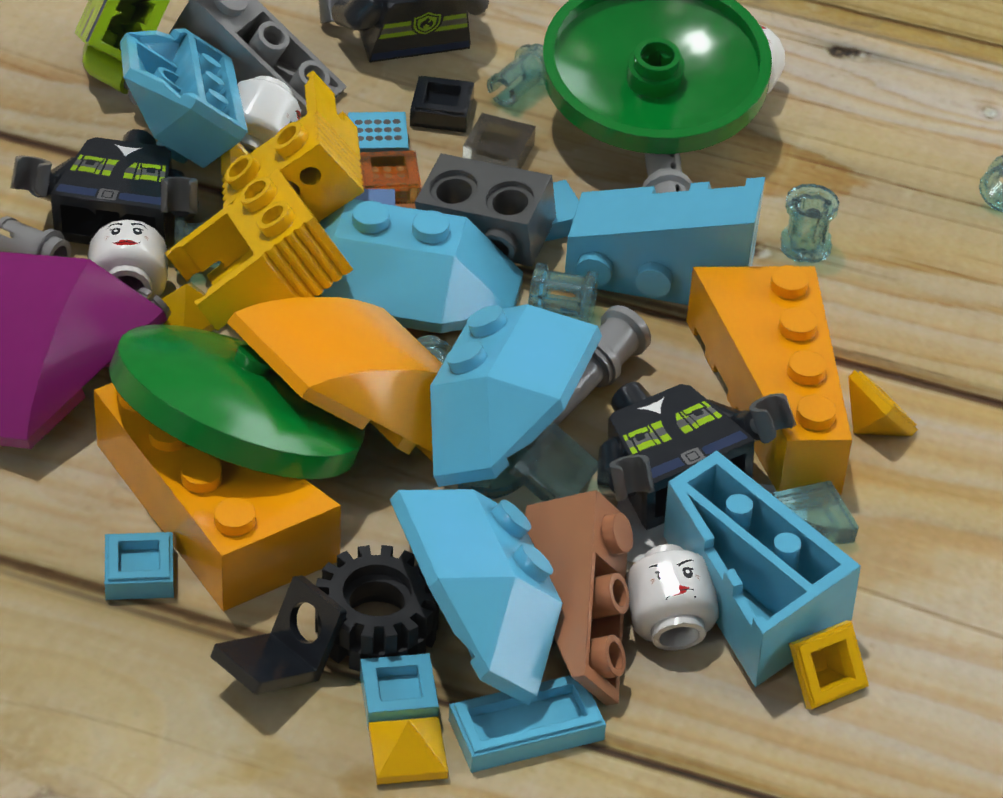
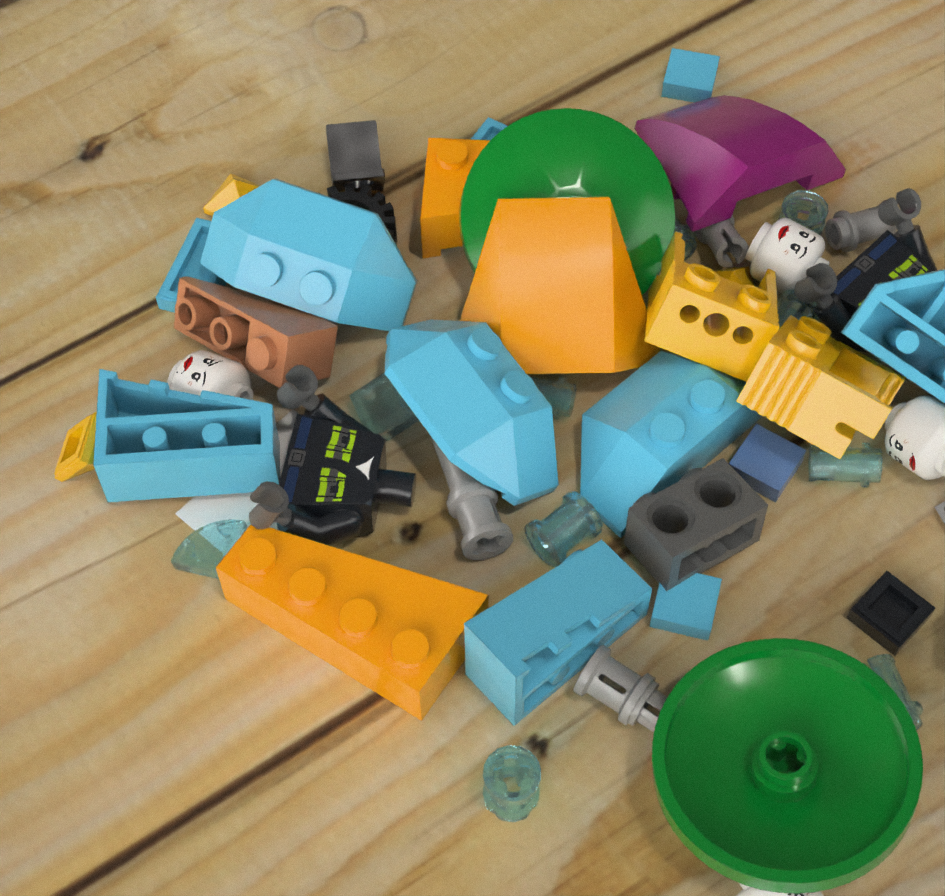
camera: 130 degrees right, 15 degrees up
(381, 131) = (867, 530): medium azure tile -> none
(392, 171) = (808, 510): clear orange tile -> none
(499, 141) = (802, 615): clear smoke tile -> none
(875, 410) = (267, 675): yellow slope -> none

